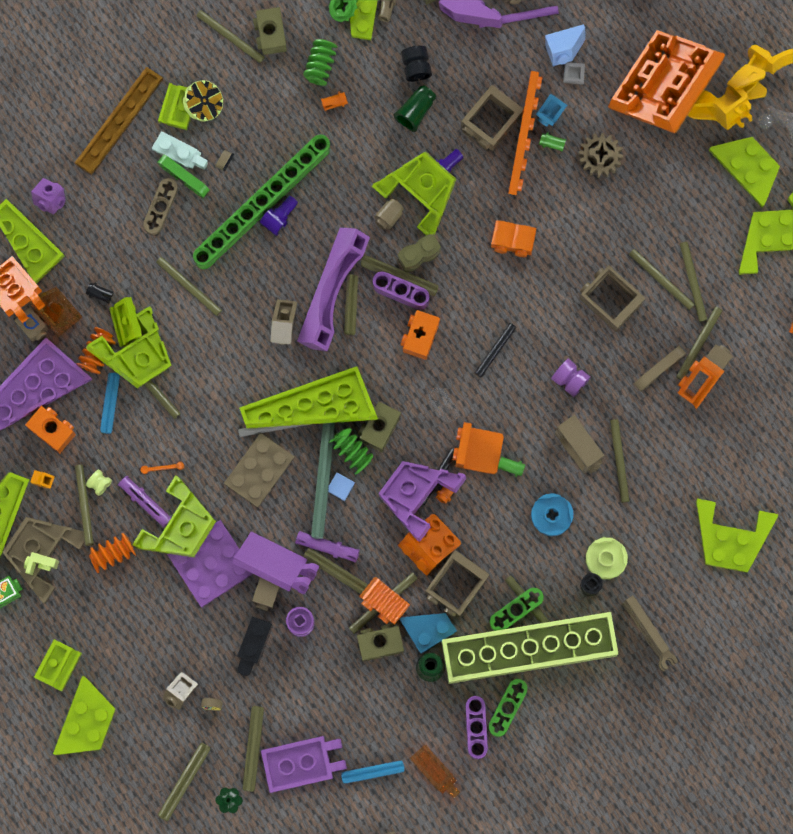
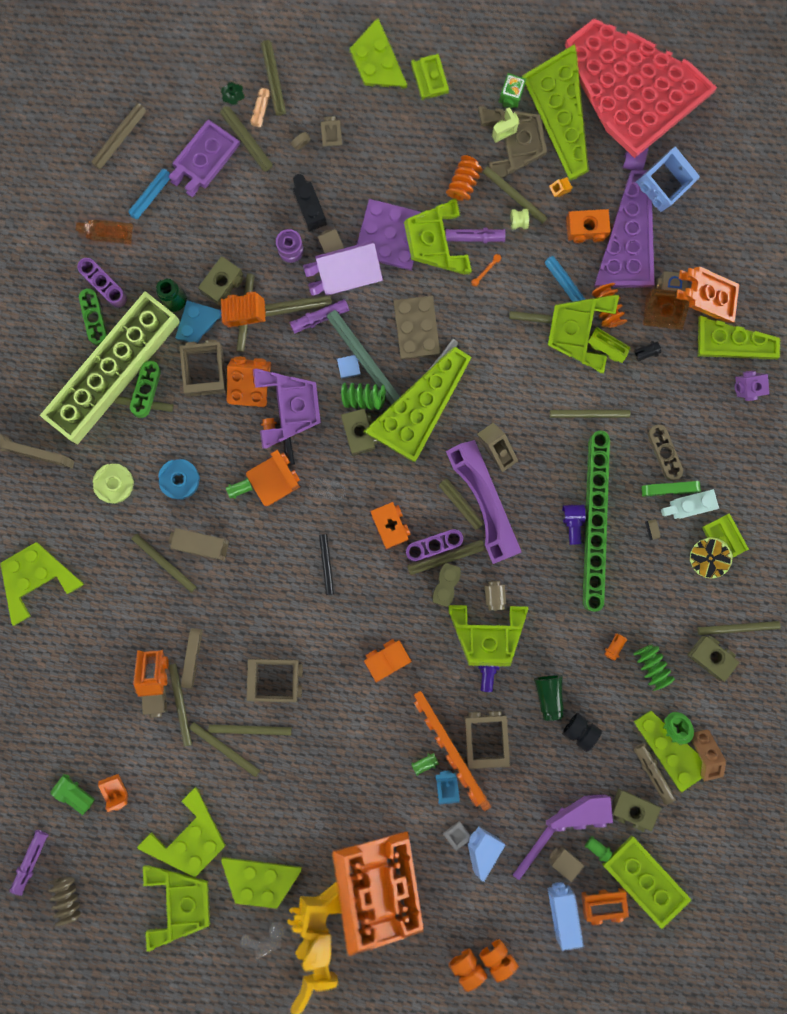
camera: 135 degrees right, 5 degrees up
(118, 121) = (756, 489): pearl gold tile -> none
(217, 765) = (260, 107): none -> light nougat axle
(569, 376) = (251, 591): medium lavender wheel -> none
(591, 588) = (108, 456): black wheel -> none
(608, 155) = (371, 792): dark tan gear -> none

